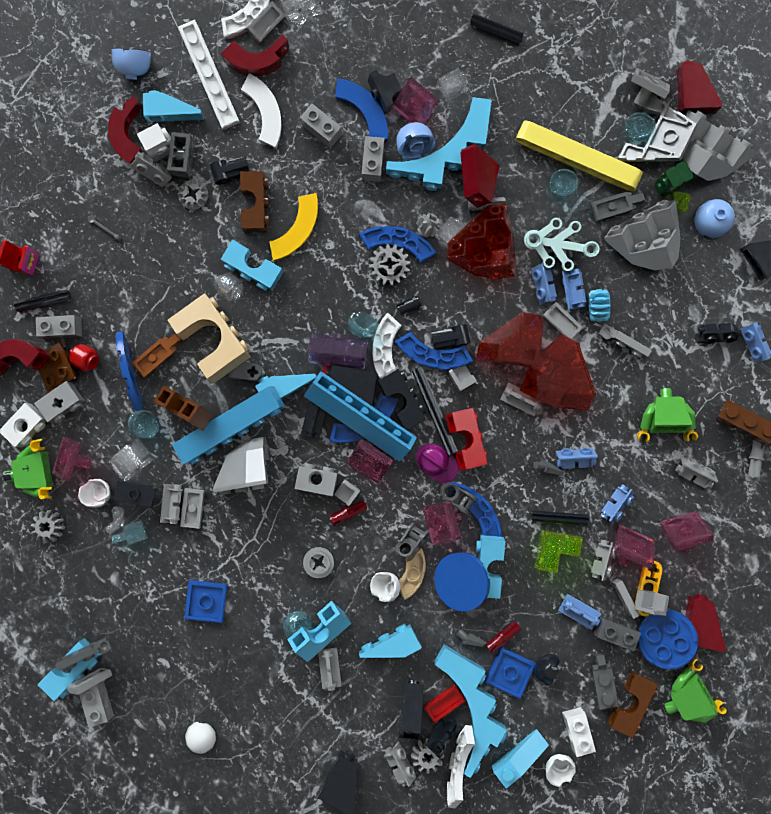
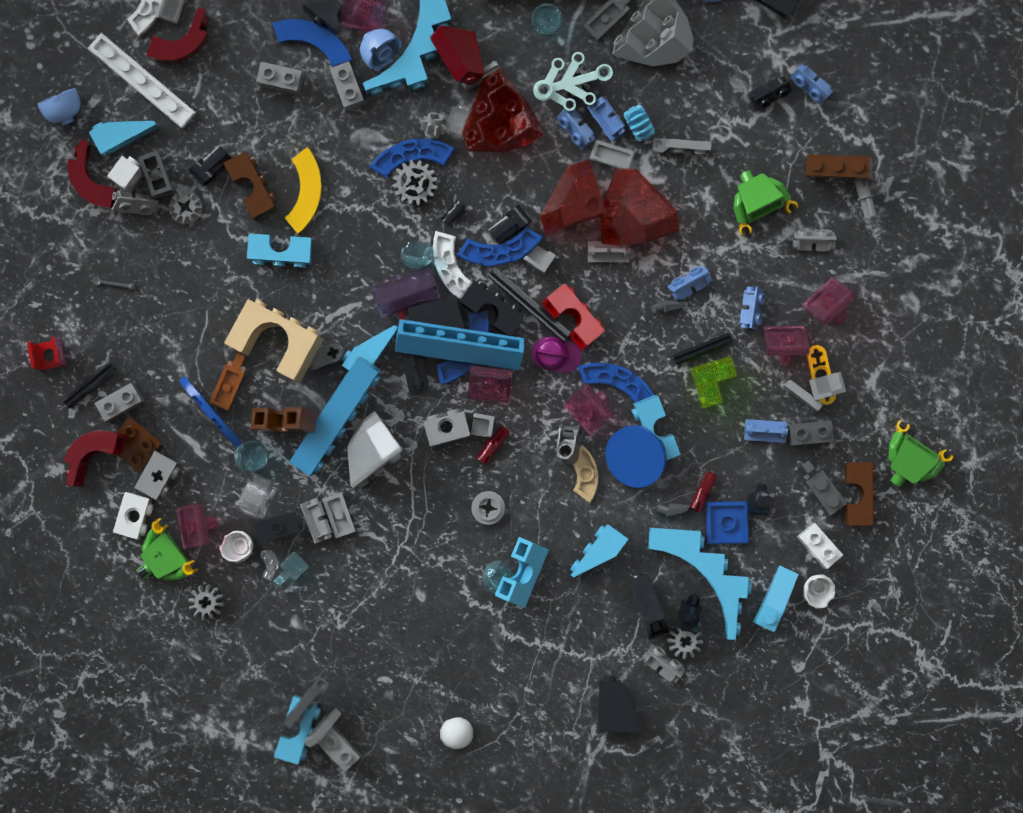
camera: 25 degrees left, 0 degrees up
(83, 357) = (159, 420): red head -> none
(206, 601) = (396, 599): blue tile -> none
(229, 286) = (267, 281): clear head -> none
(268, 107) = (218, 85): white tile -> none
(329, 668) = (549, 604): light grey hinge -> none
(385, 586) = (564, 498): white hair -> none
(444, 703) = (677, 584): red tile -> none
(457, 763) = (717, 634): white tile -> none
(459, 498) = (594, 377): dark grey piece -> none
(603, 568) = (768, 377): light grey hinge -> none
(668, 640) = (861, 414): blue tile -> none
(705, 619) = (889, 384): dark red slope -> none

